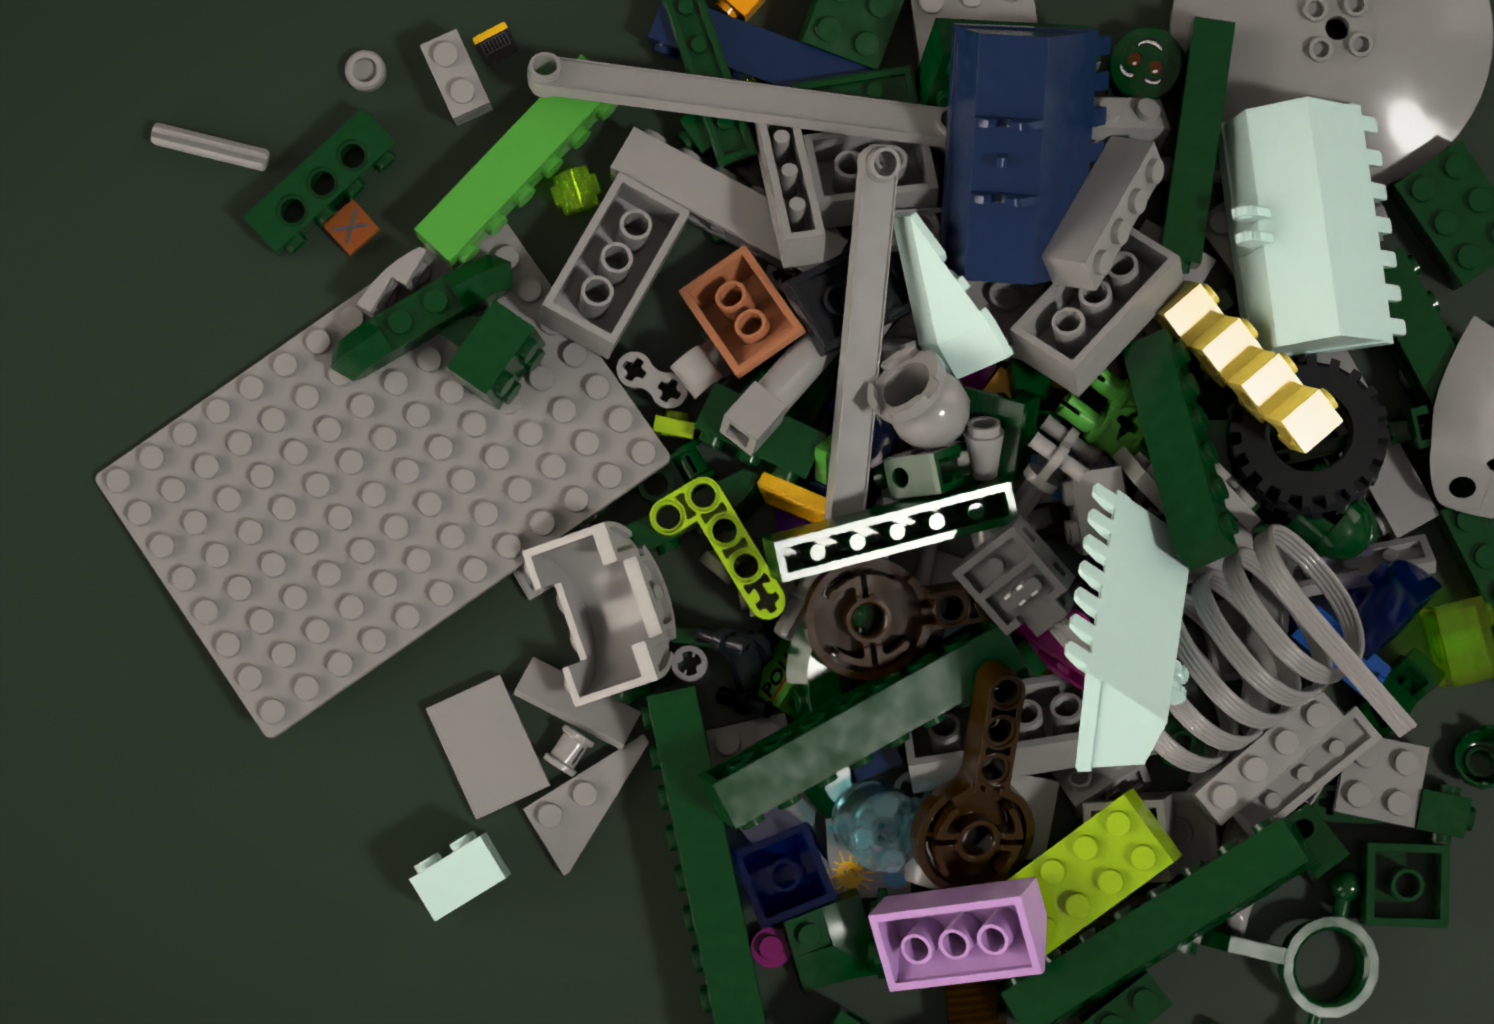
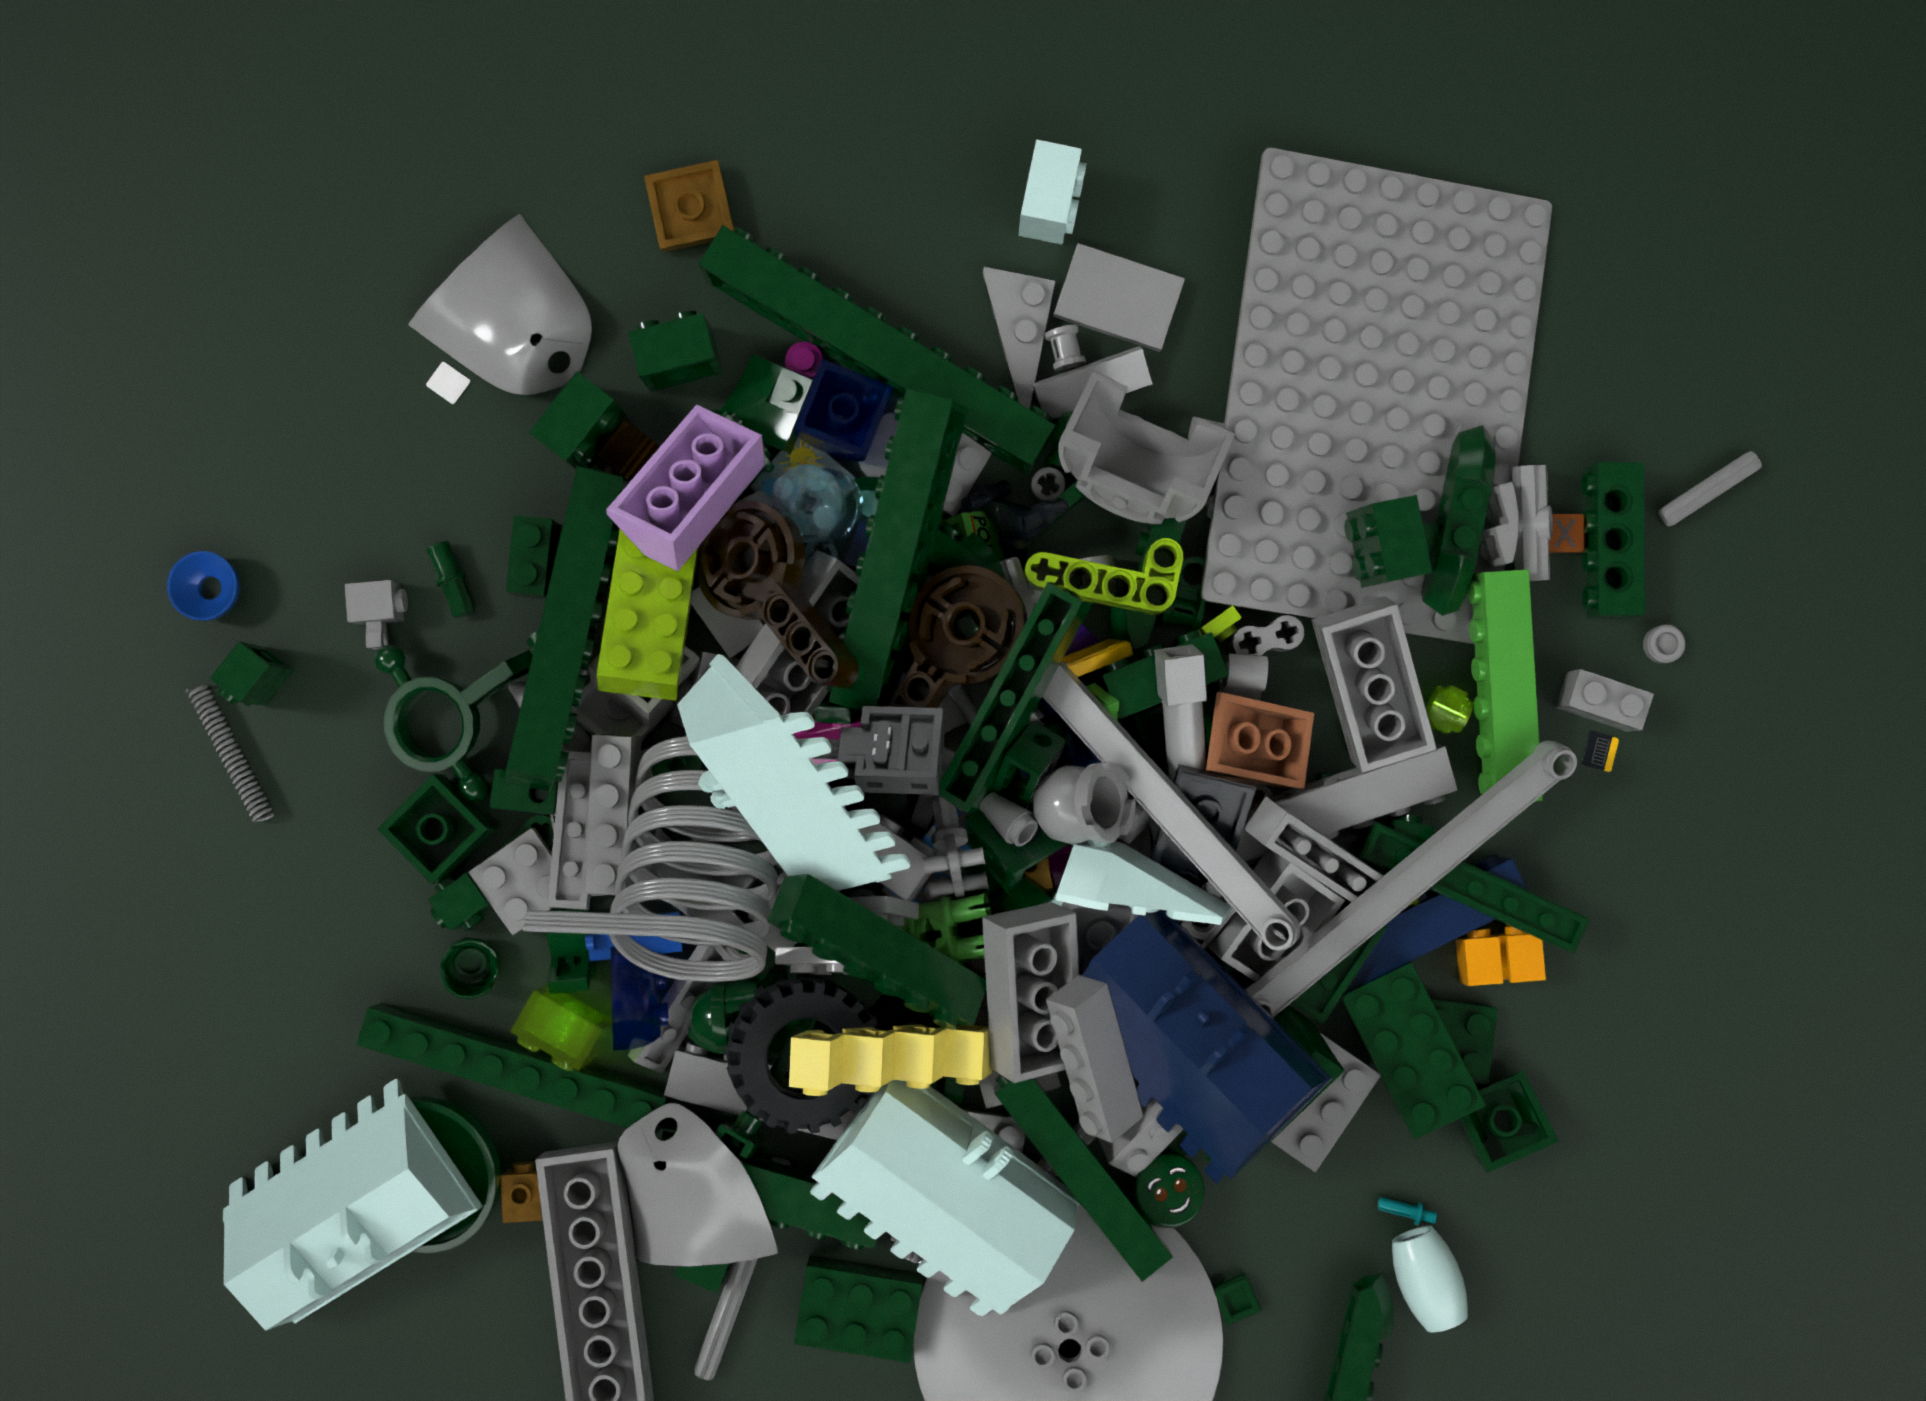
camera: 130 degrees right, 0 degrees up
(368, 259) = (1534, 521): none -> light grey piece

